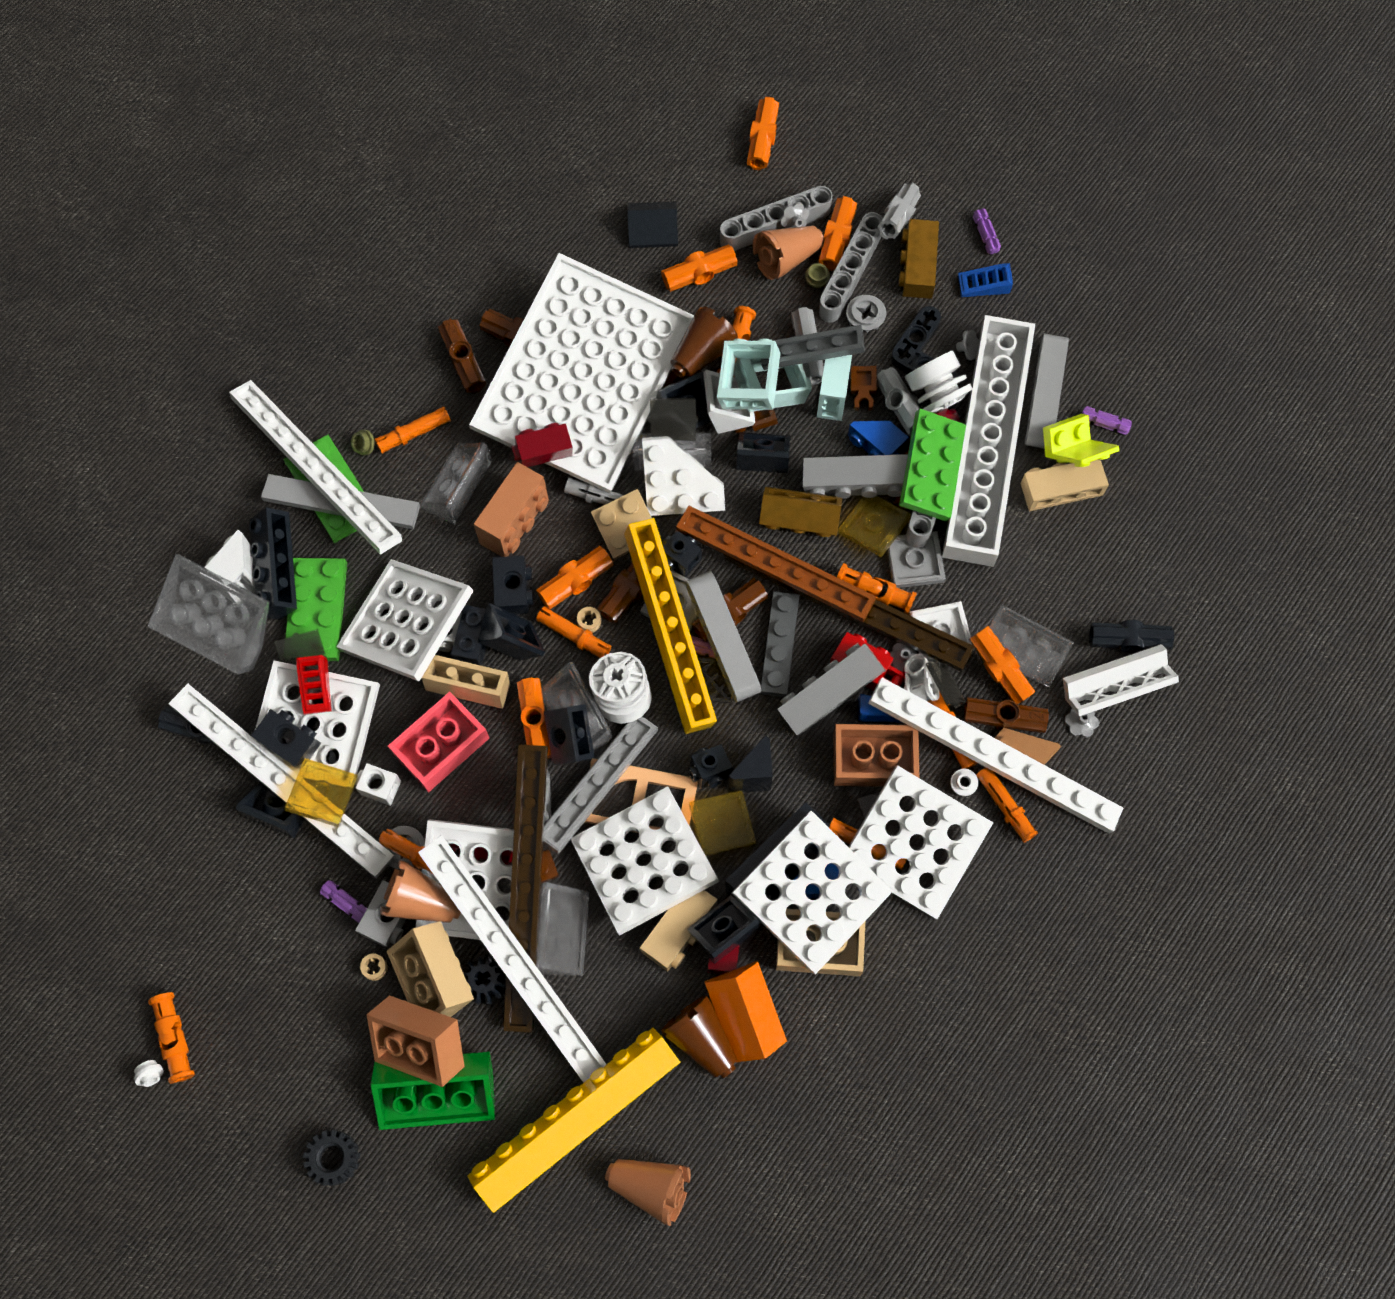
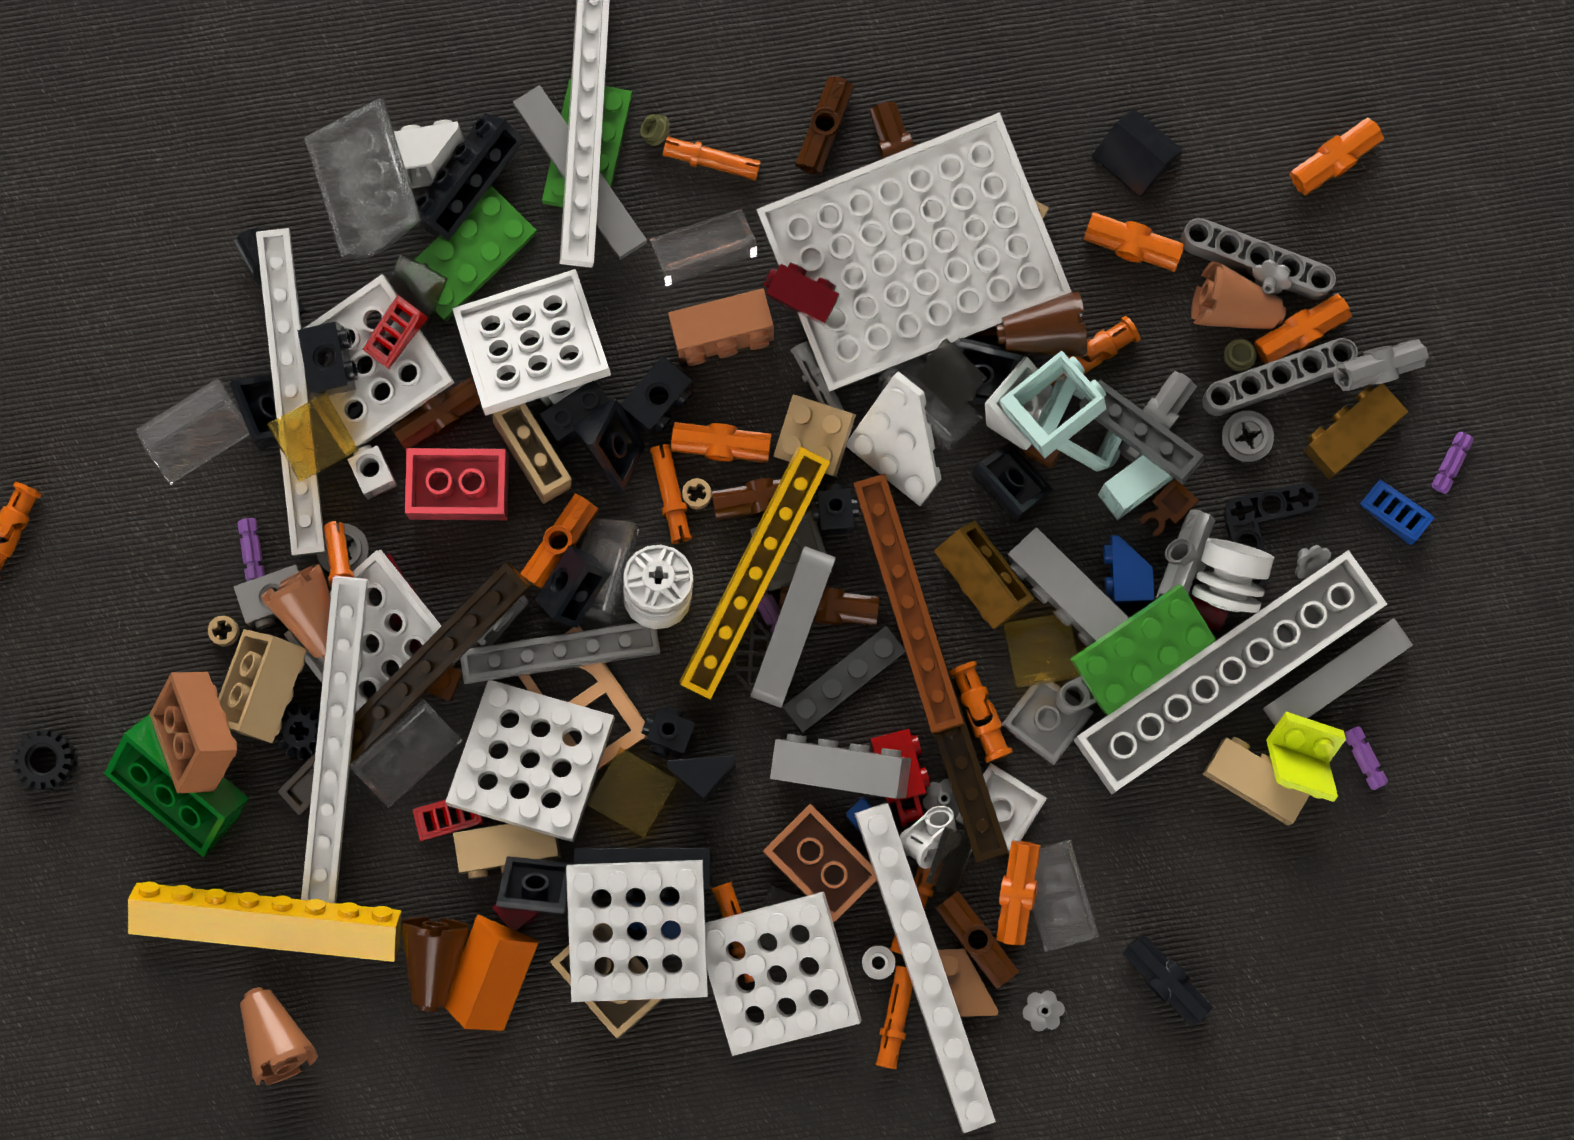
camera: 45 degrees right, 10 degrees up
(239, 864) = (193, 431): none -> clear slope
(387, 713) = (438, 414): none -> reddish brown piece
(634, 949) = (476, 821): none -> red slope
(1116, 677) = (1113, 1004): white fence -> none

